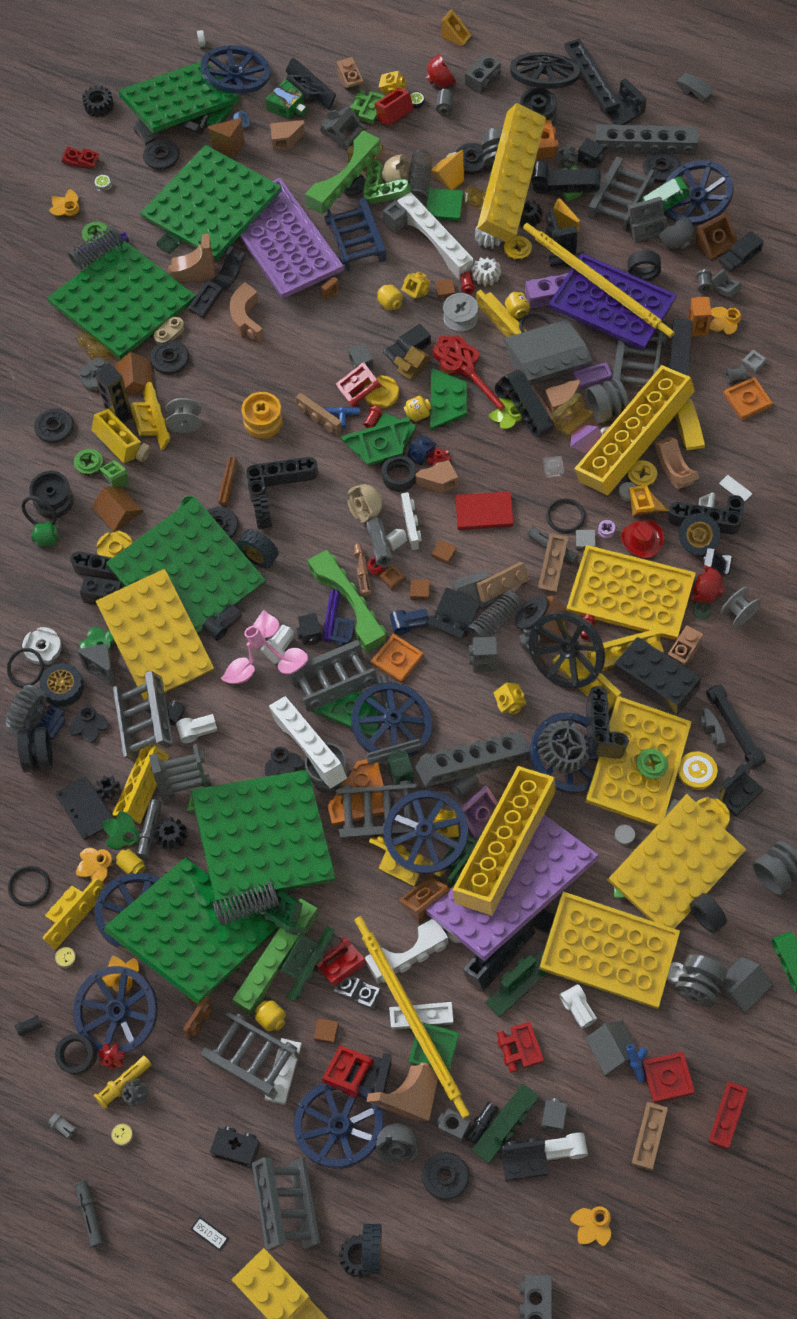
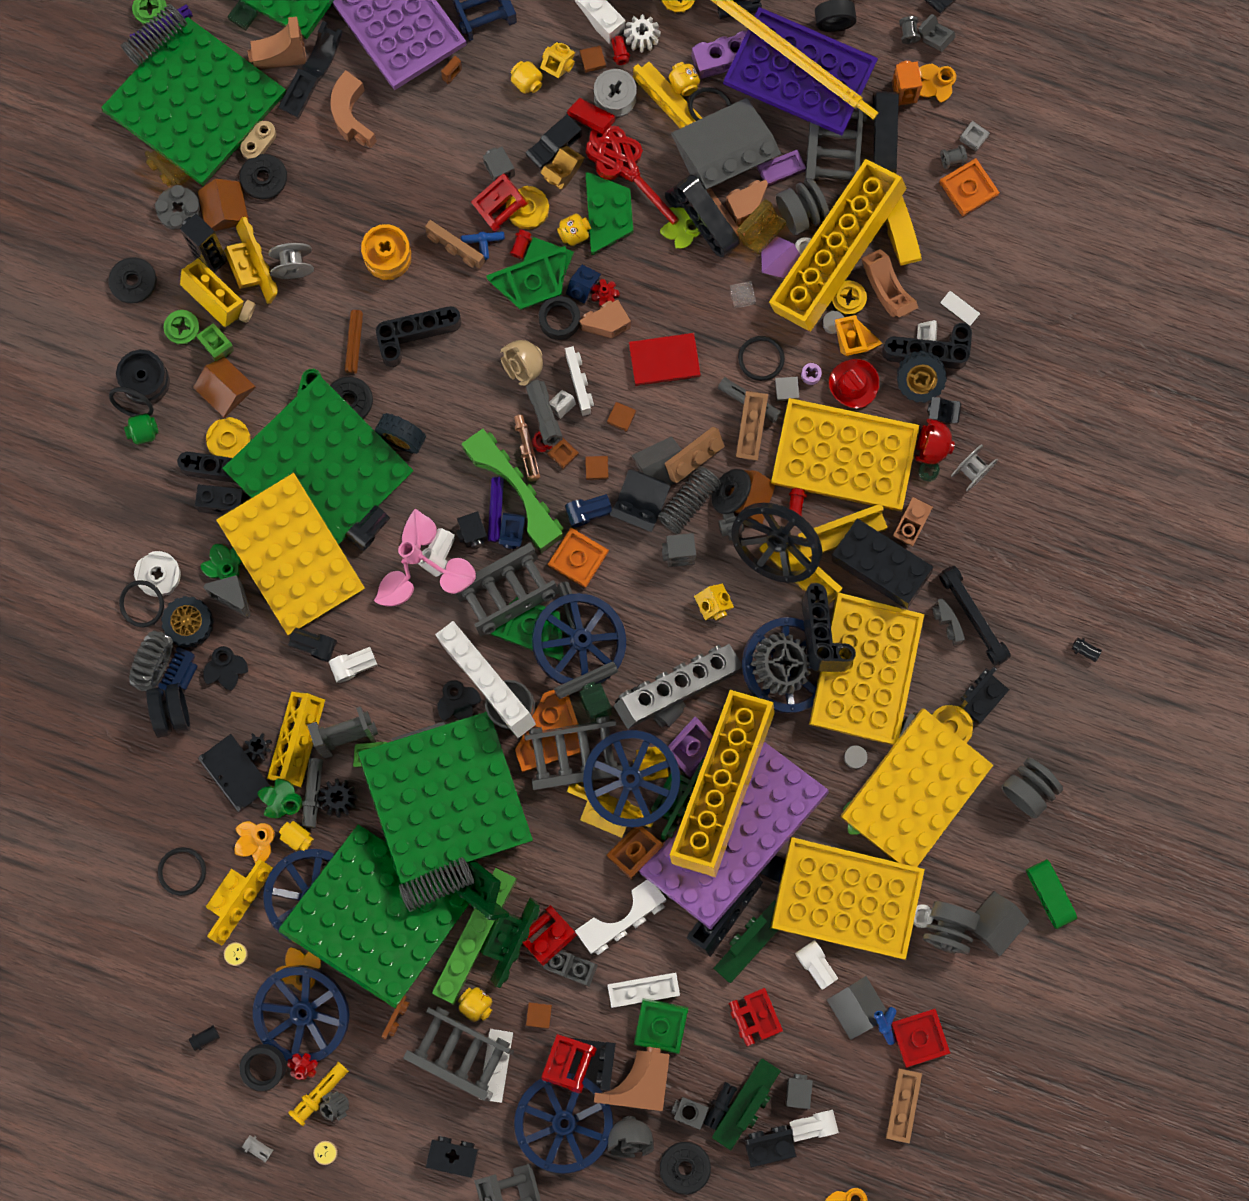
camera: 10 degrees left, 15 degrees up
(158, 720) = (307, 651): dark grey fence -> none
(262, 511) = (400, 383): black tyre -> none
(412, 1017) = (633, 996): yellow axle -> none
(439, 327) = (591, 115): none -> red tile
(656, 757) = (885, 663): bright green gear -> none
(697, 770) = (934, 672): yellow tile -> none
(708, 913) = (955, 847): black tyre -> none
(727, 1115) = (987, 1075): red plate -> none

